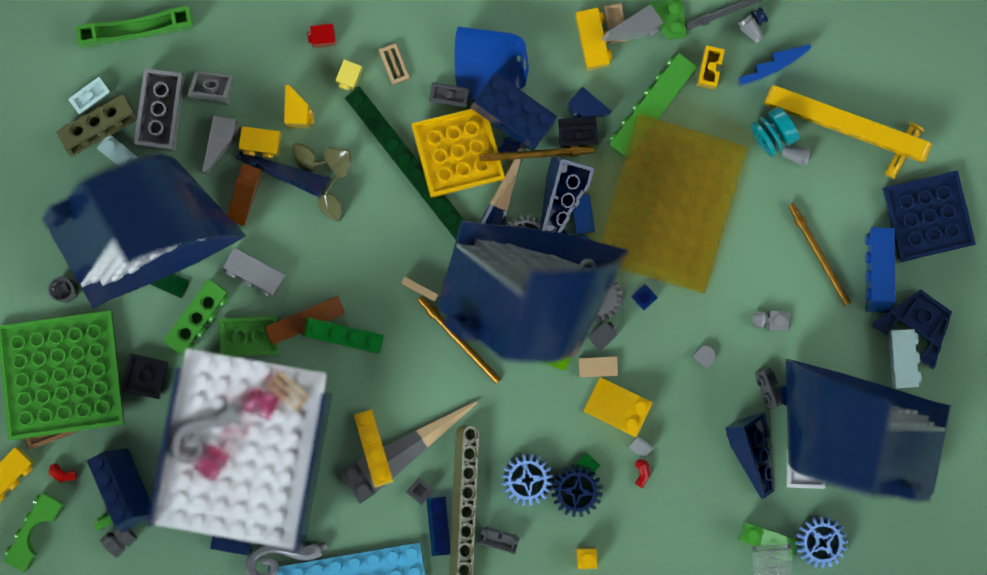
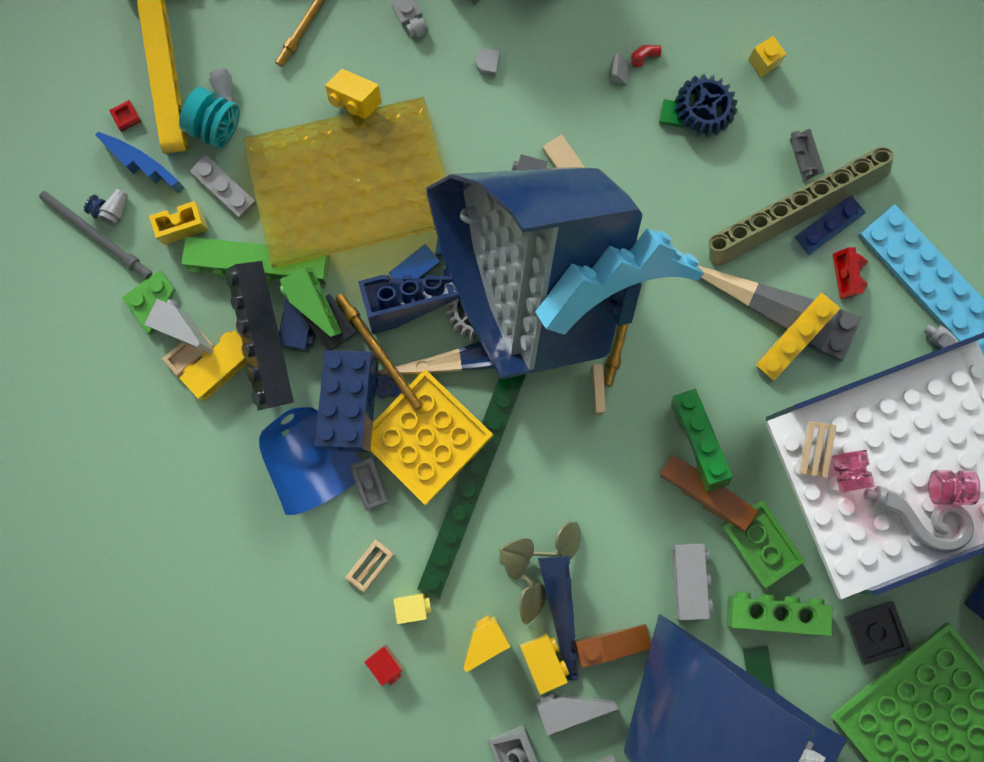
camera: 120 degrees left, 5 degrees down
(390, 512) = (847, 267): none -> red tile
(420, 491) = (808, 263): dark grey plate -> none
(479, 325) = (615, 270): none -> medium azure arch
(536, 478) = (716, 147): light blue gear -> none
(593, 77) = (259, 335): none -> black brick
(603, 126) = (307, 296): none -> bright green slope
(618, 407) = (594, 113): yellow slope -> none
(644, 297) = (464, 154): clear blue plate -> none
(722, 113) = (223, 187): none -> light grey plate
(733, 243) = (354, 93): none -> yellow brick
(817, 73) = (125, 115): none -> red tile

